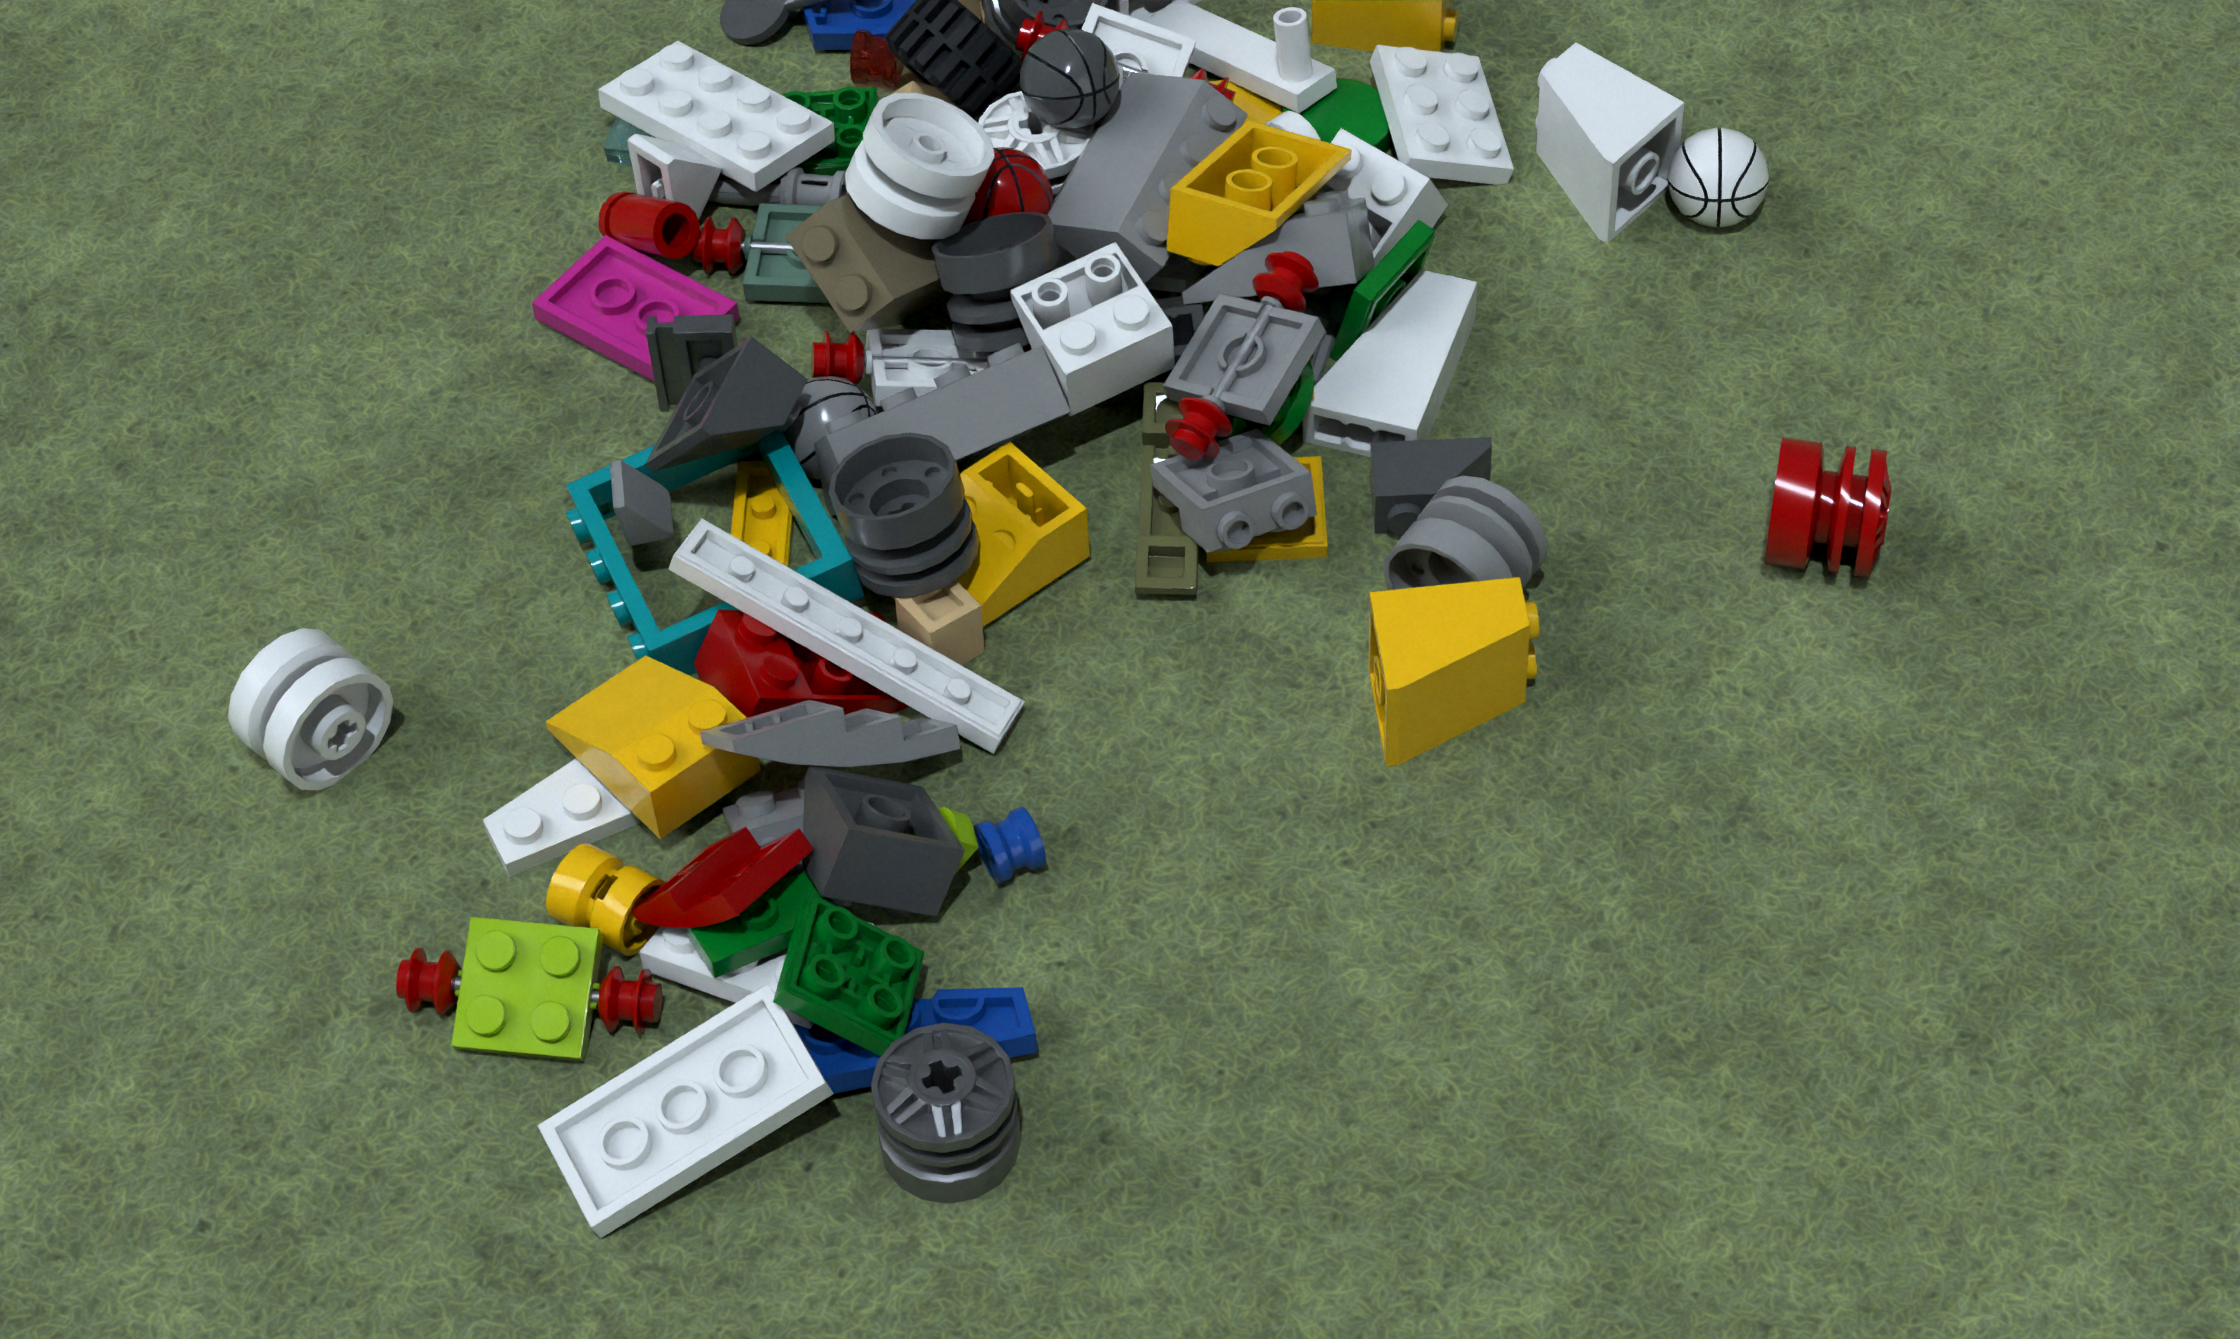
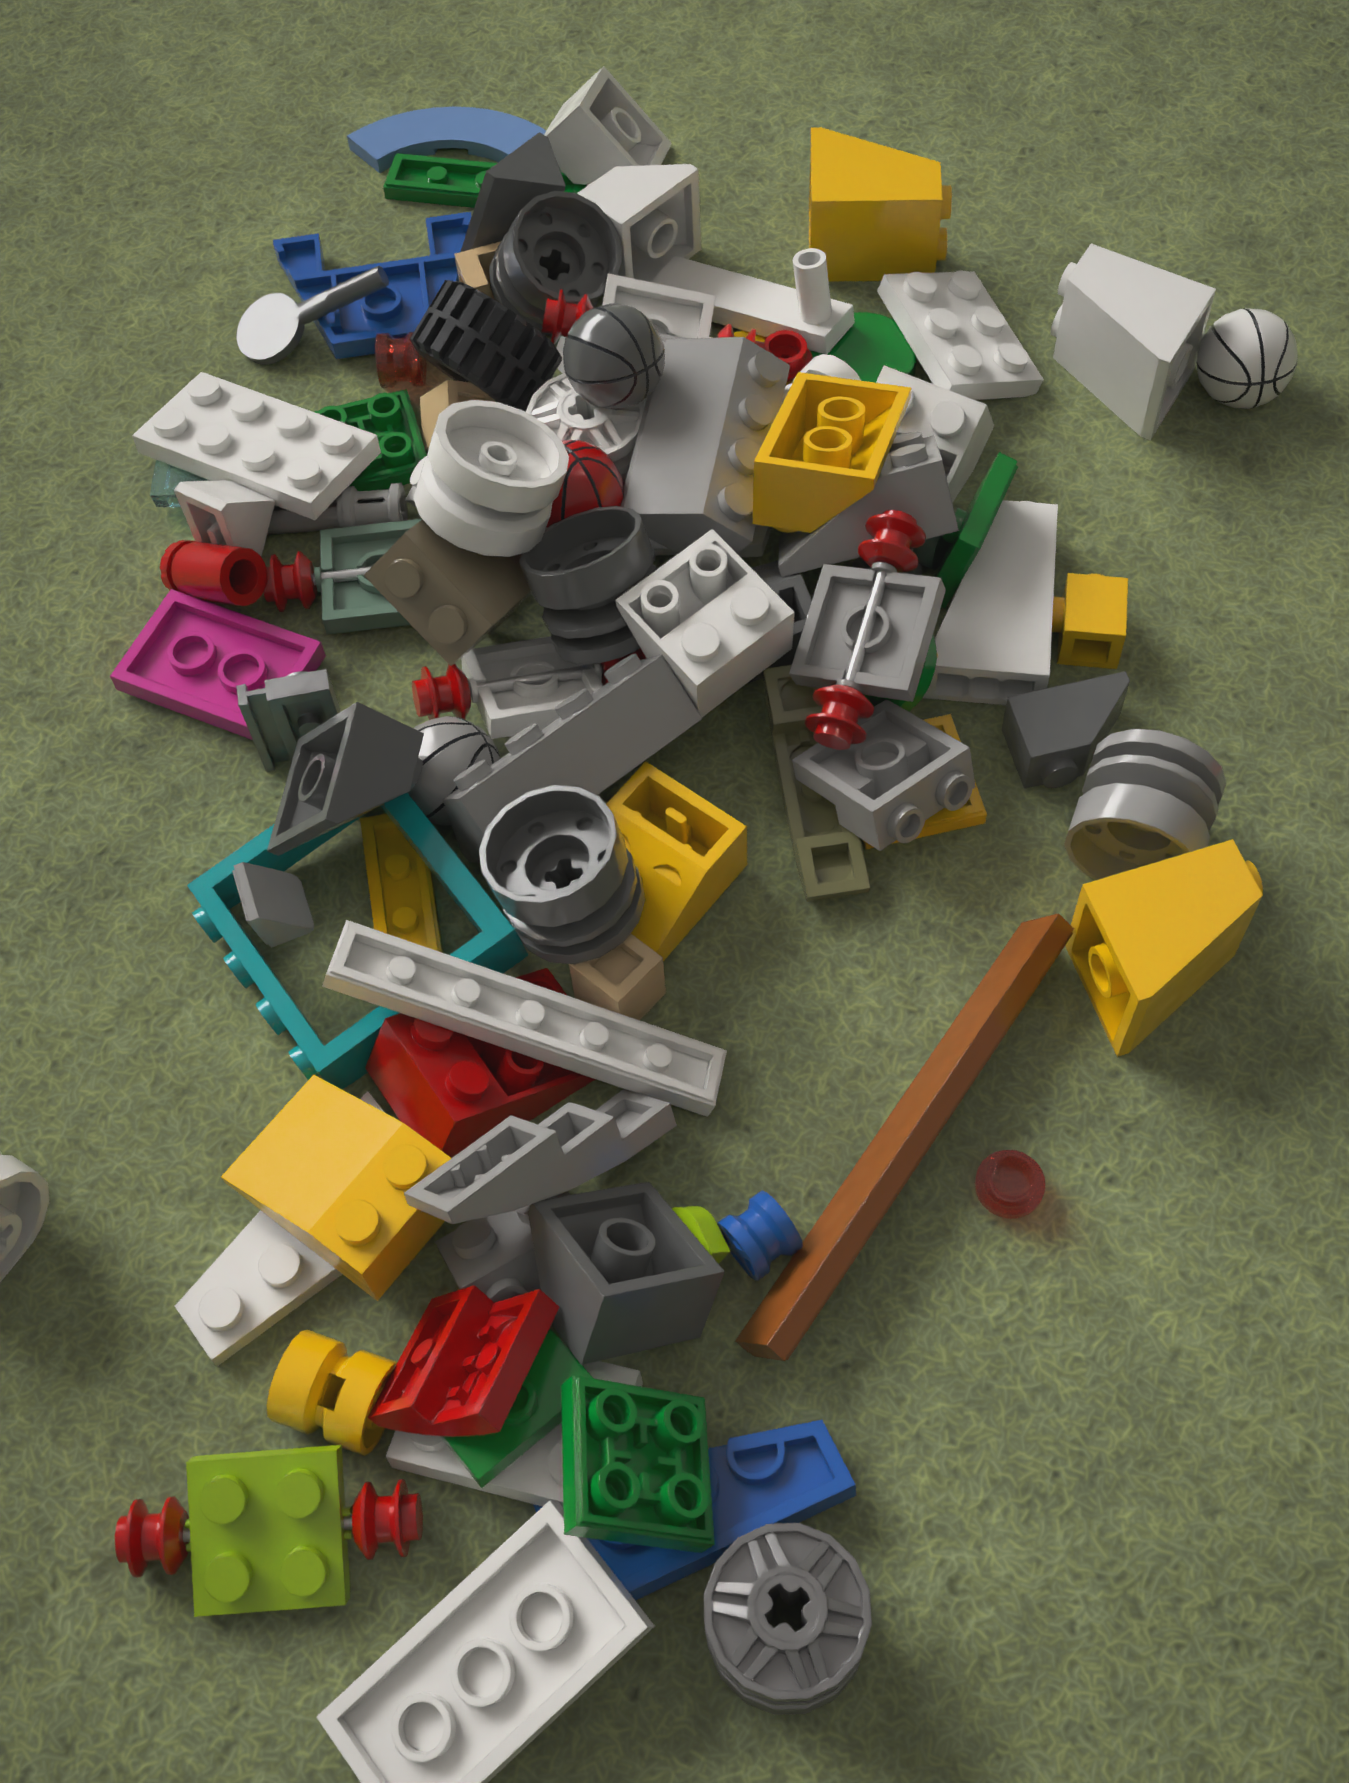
camera: 10 degrees left, 10 degrees up
(1167, 788) = (903, 1141): none -> dark orange tile
(1249, 844) = (1010, 1184): none -> clear red plate
(1259, 102) = (790, 348): none -> red plate
(1481, 393) = (1091, 620): none -> yellow brick

